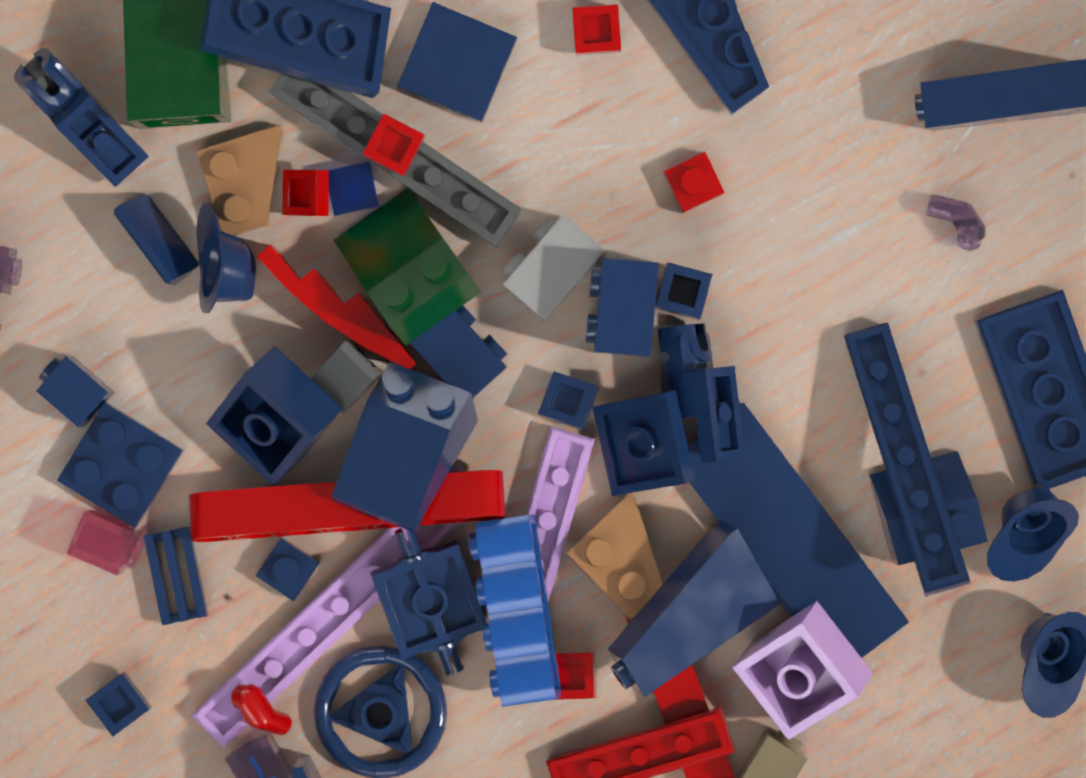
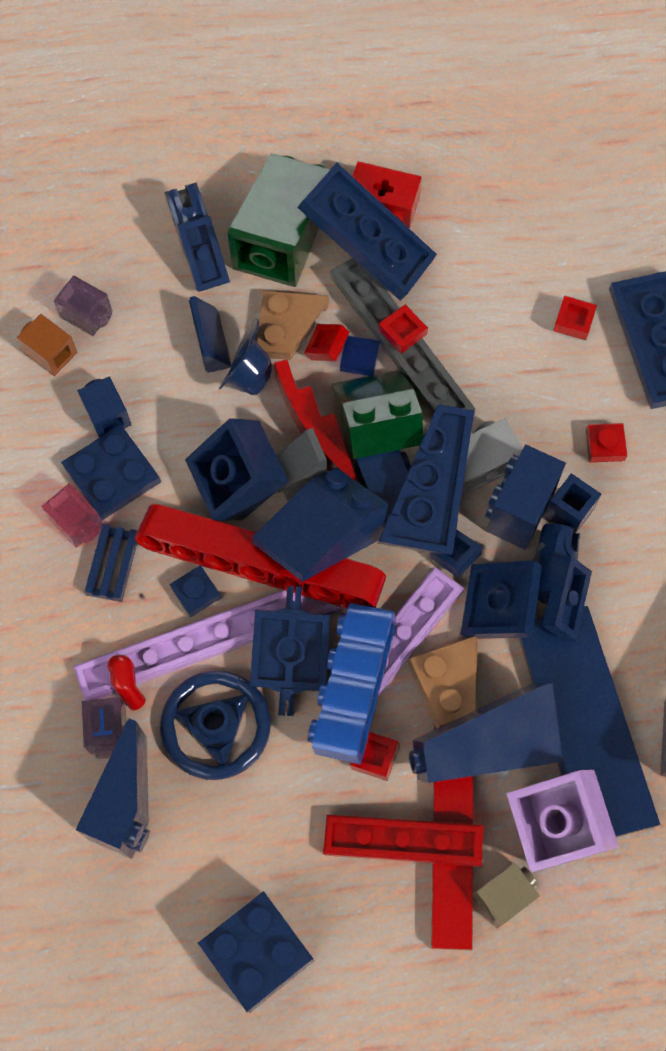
camera: 25 degrees right, 20 degrees down
(118, 703) = (24, 635): dark blue plate -> none
(457, 62) = (468, 305): dark blue tile -> none
(514, 350) = (432, 491): none -> dark blue wing

